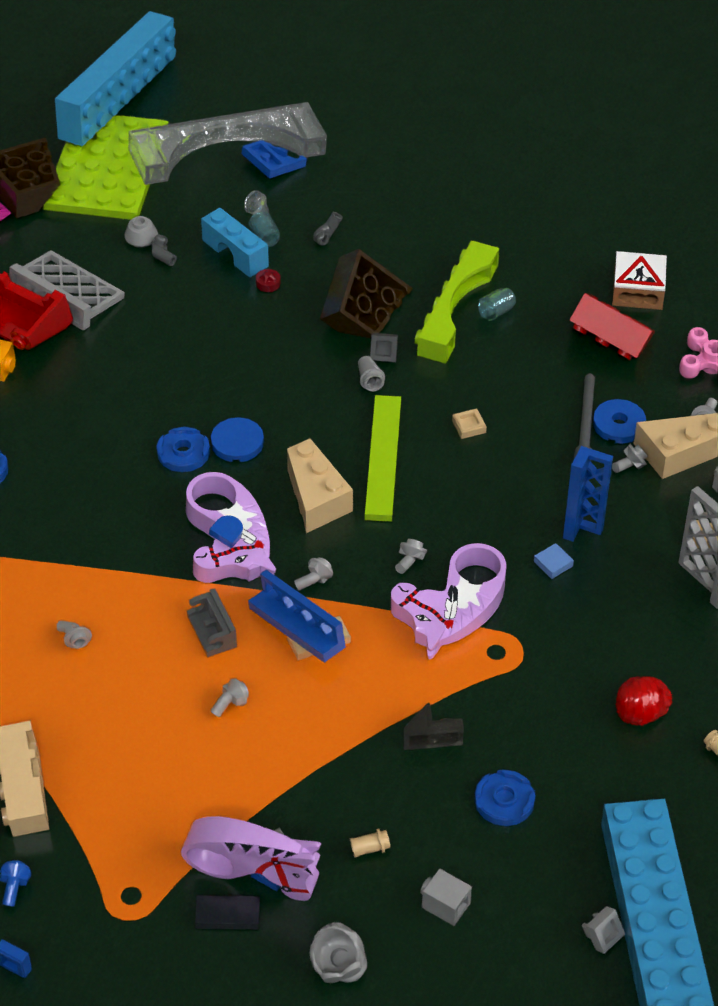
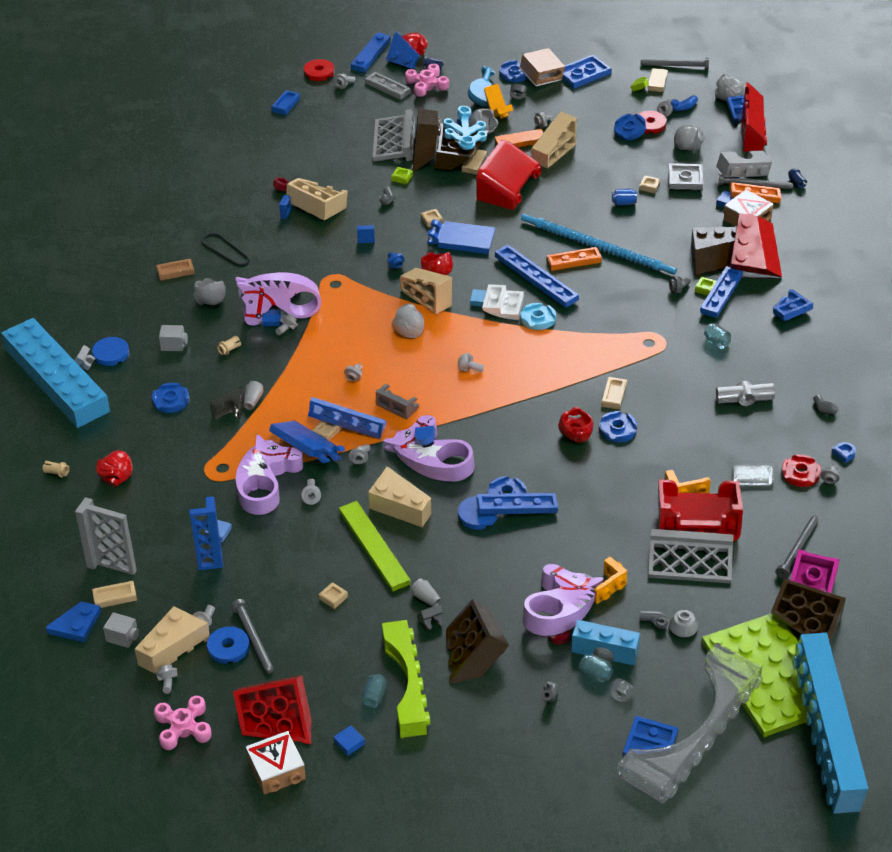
camera: 150 degrees right, 5 degrees down
(35, 470) = (576, 428): none -> red hair
(93, 736) = (408, 321): none -> light grey hair
(170, 293) = (617, 580): none -> light orange bracket
(190, 415) = (517, 503): none -> blue plate
(236, 286) = (567, 598): none -> lavender animal
(372, 613) = (306, 440): none -> blue tile
(389, 734) = (252, 394): none -> light grey cone
(549, 932) = (110, 351): none -> blue tile
(551, 279) = (349, 740): none -> blue tile

